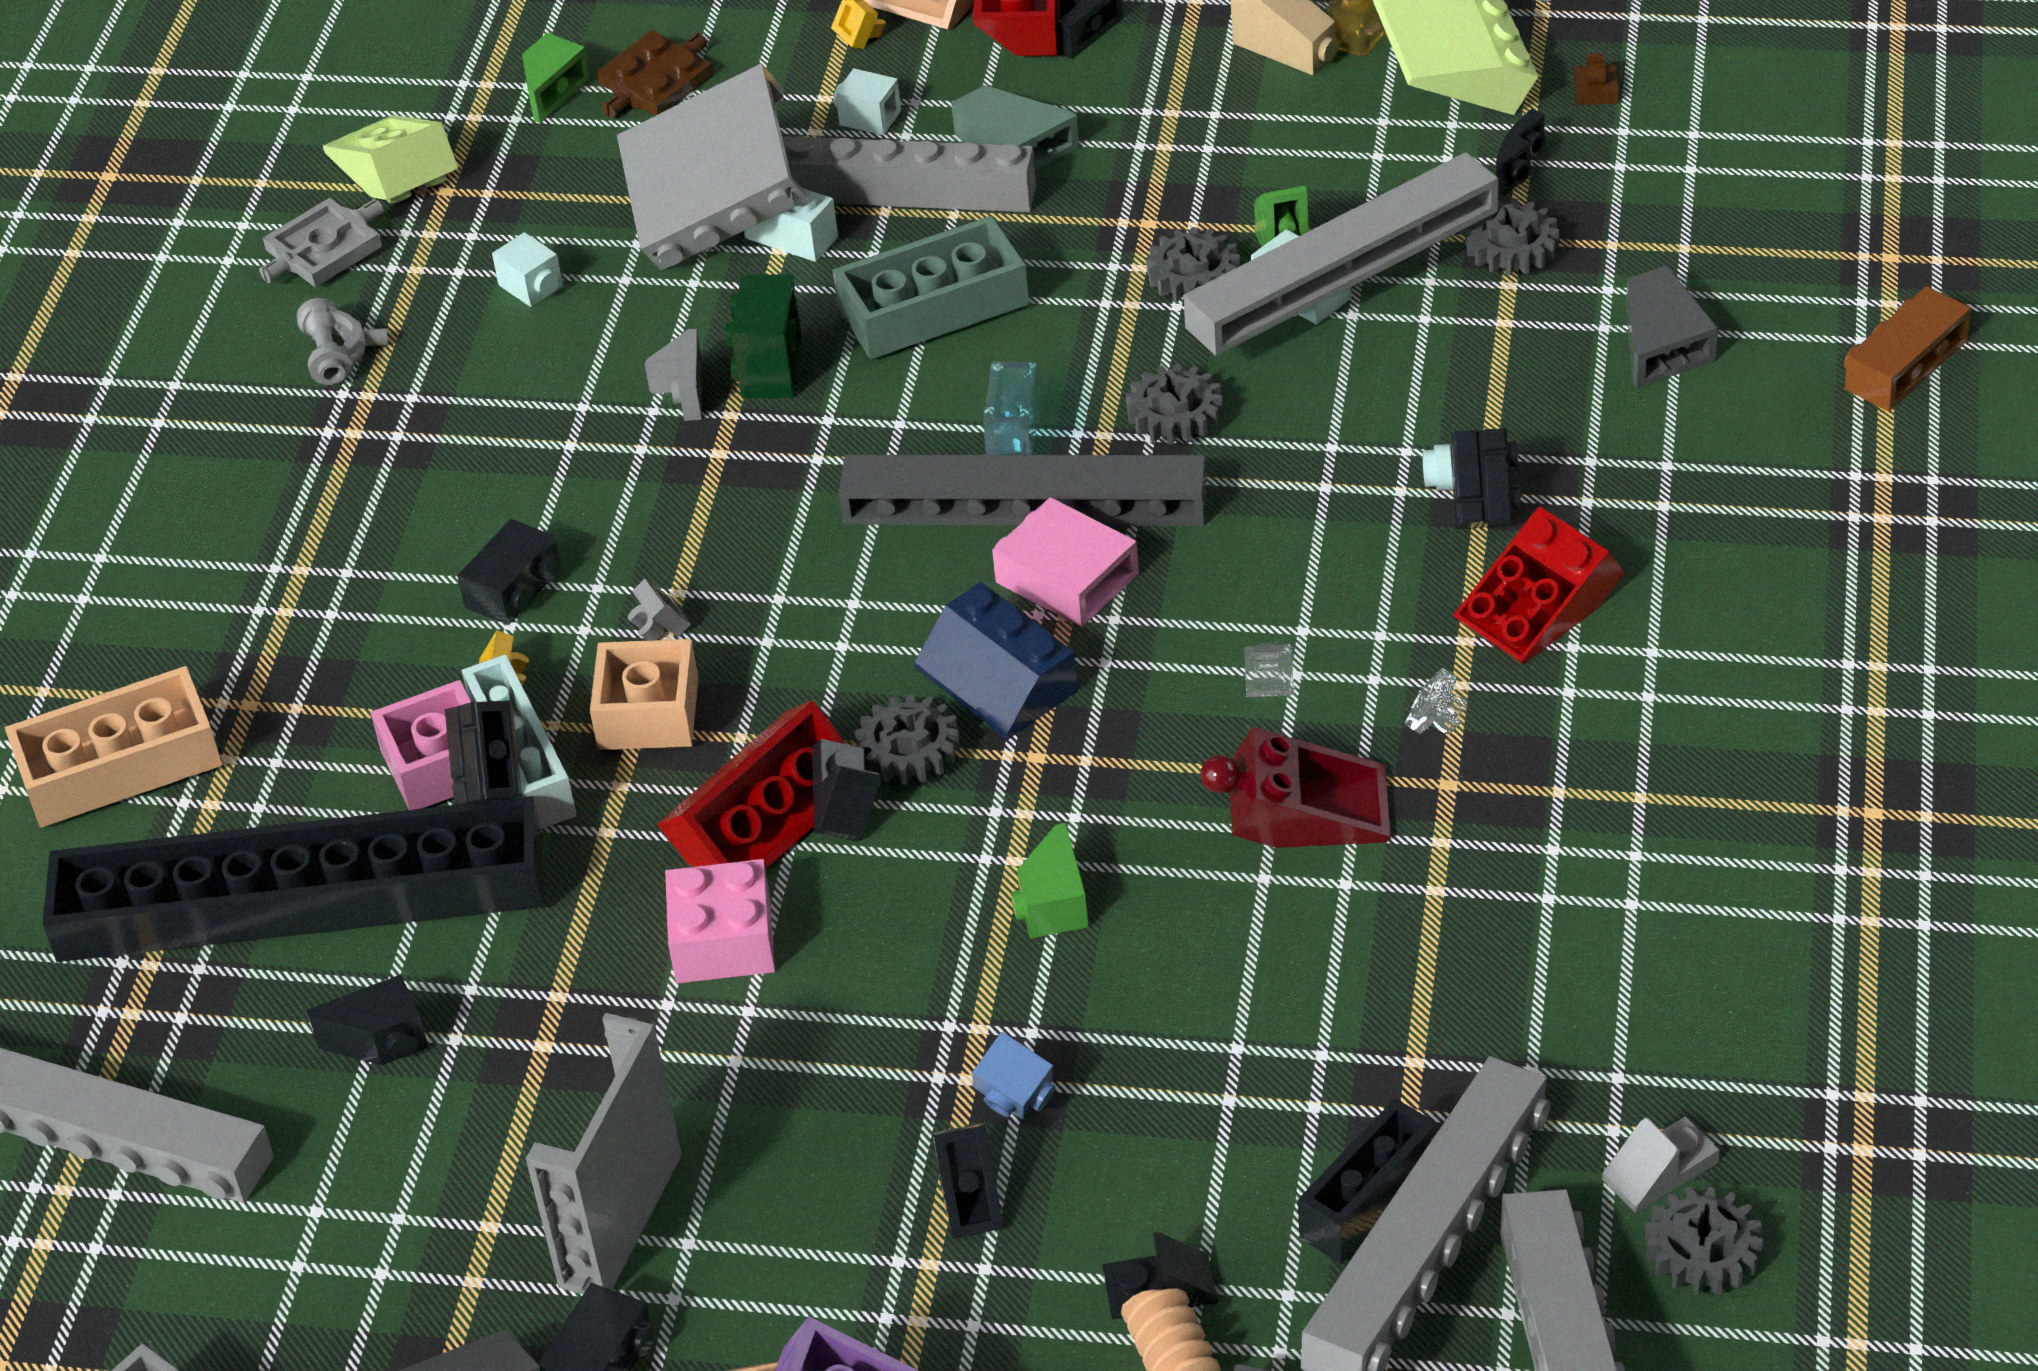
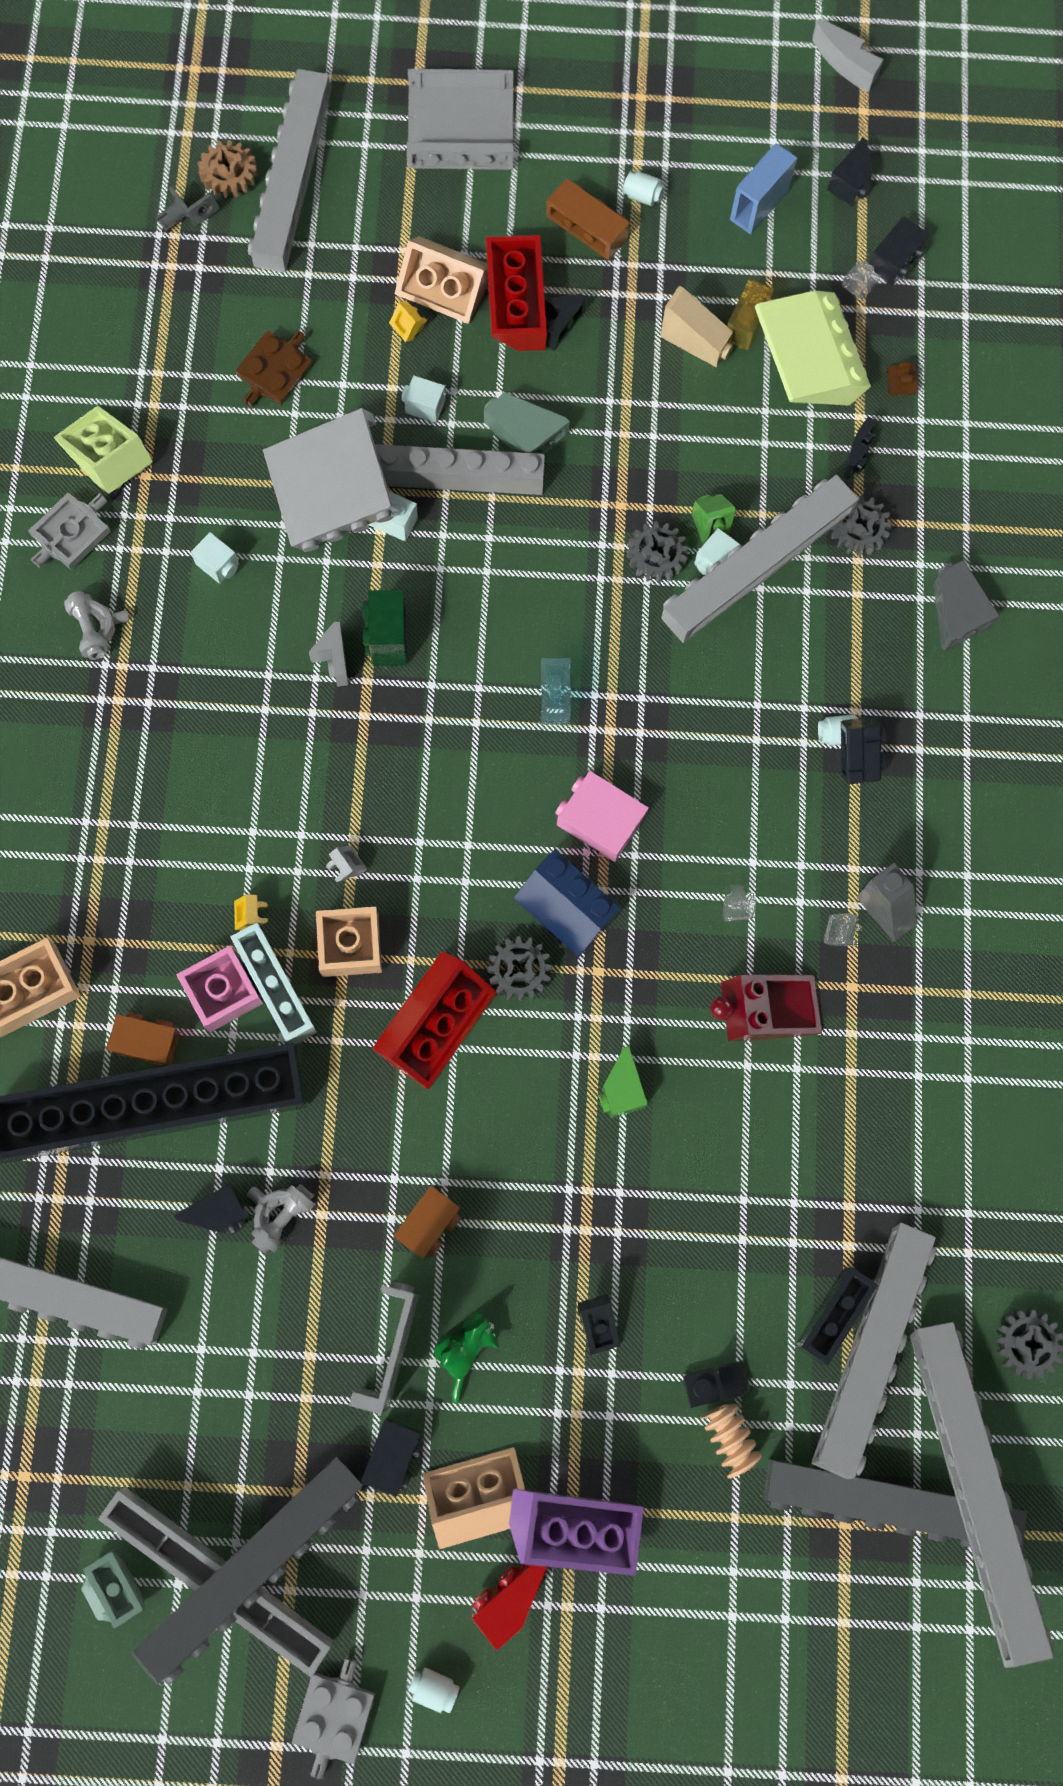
camera: 15 degrees left, 30 degrees up
(300, 797) = (143, 1040): none -> dark orange brick
(483, 752) = (257, 1018): black brick -> none
(486, 1016) = (268, 1234): none -> light grey piece
(509, 571) = (245, 832): black brick -> none
(553, 73) = (204, 370): bright green slope -> none
(711, 1046) = (428, 1223): none -> dark orange brick
(719, 921) = (421, 1124): bright pink brick -> none
(730, 1213) = (459, 1352): none -> green animal
(842, 790) = (483, 1020): black slope -> none
(931, 287) = (489, 578): sand green brick -> none
(1008, 487) = (568, 754): dark grey brick -> none
(1013, 1078) = (617, 1245): medium blue brick -> none
(1174, 403) = (651, 687): dark grey gear -> none
(1509, 654) = (891, 902): none -> dark grey slope
(1539, 587) = (898, 831): red slope -> none
(1658, 1161) = (999, 1282): light grey slope -> none

